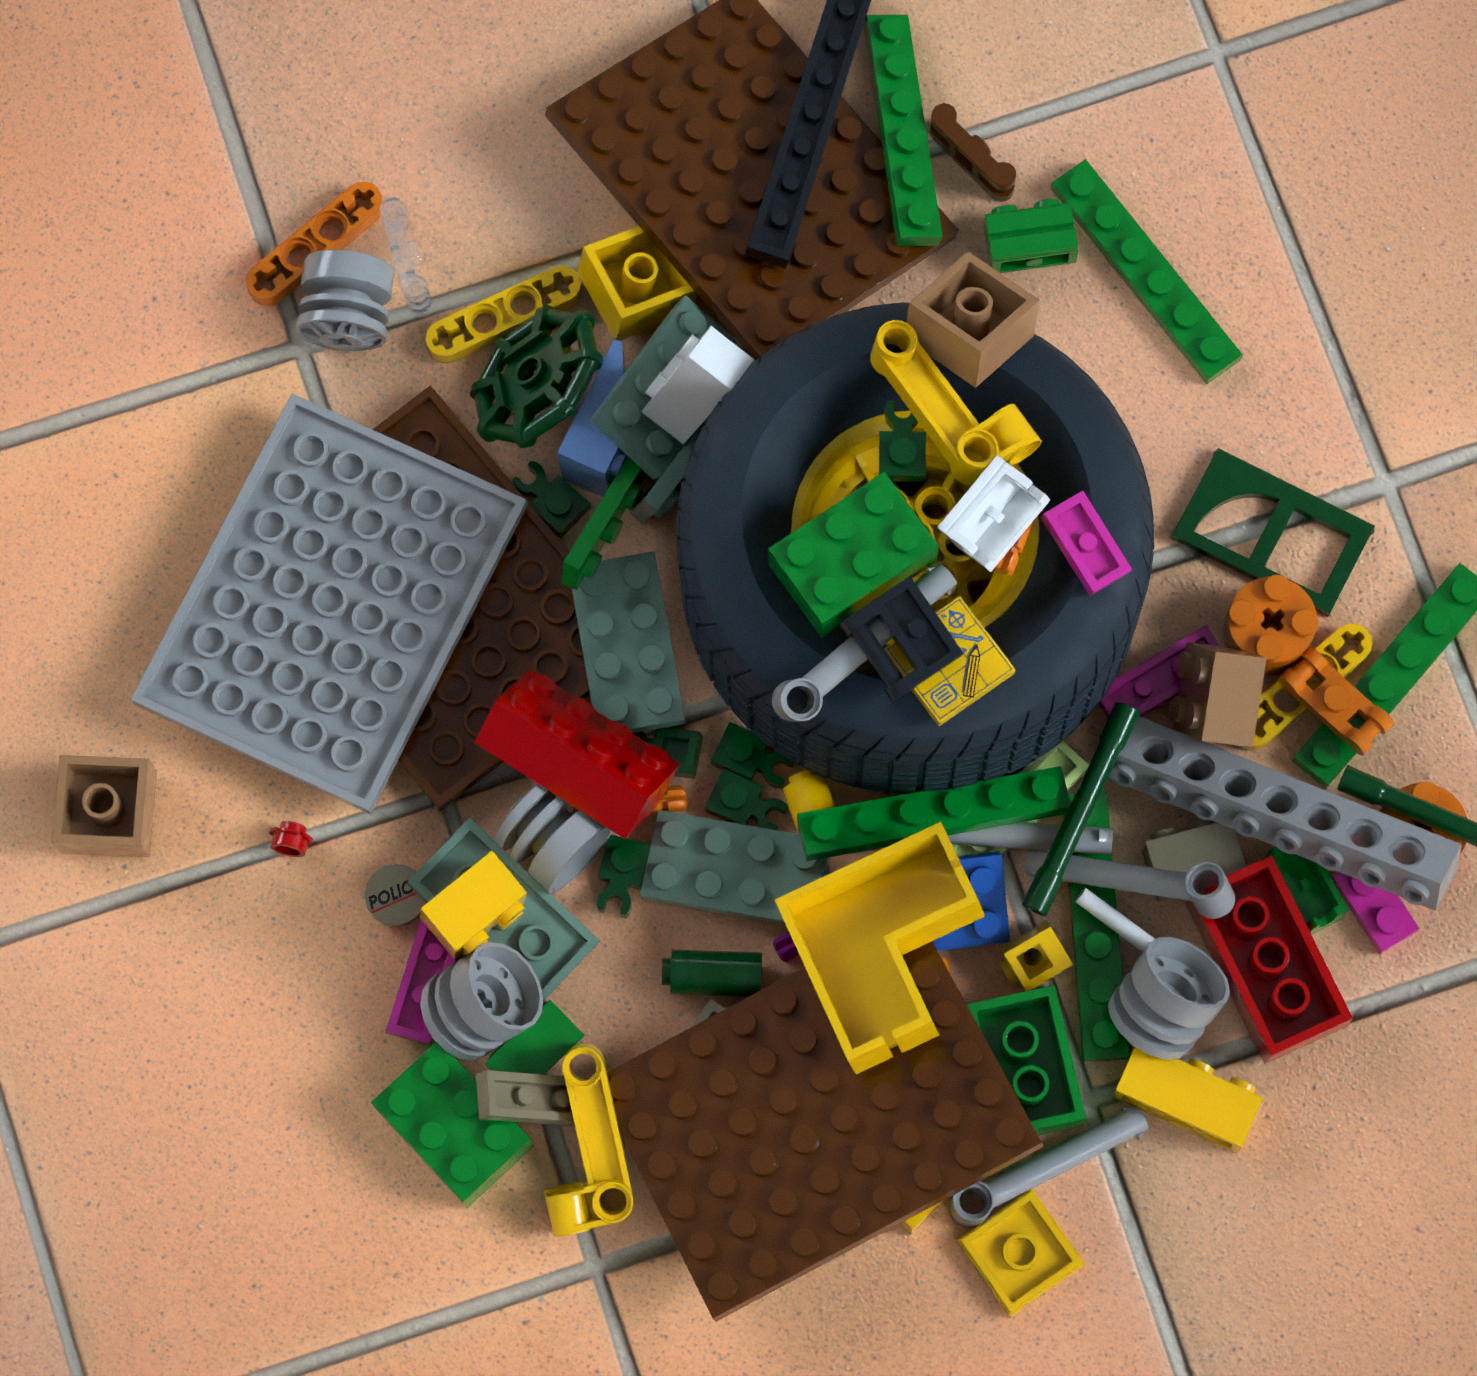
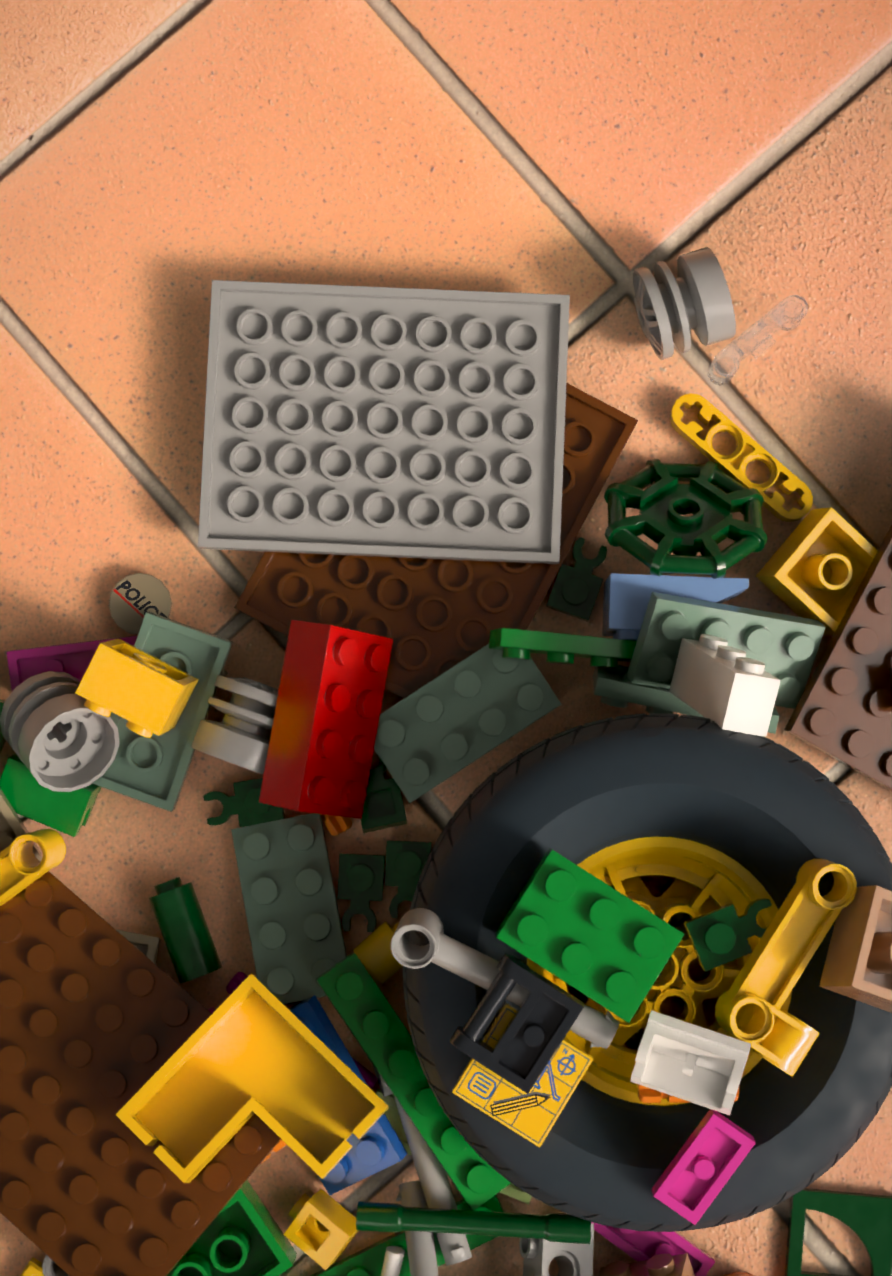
camera: 65 degrees right, 10 degrees up
(104, 806) = (106, 302): medium nougat brick -> none
(290, 839) = (152, 484): red plate -> none
(309, 238) = (736, 244): orange beam -> none

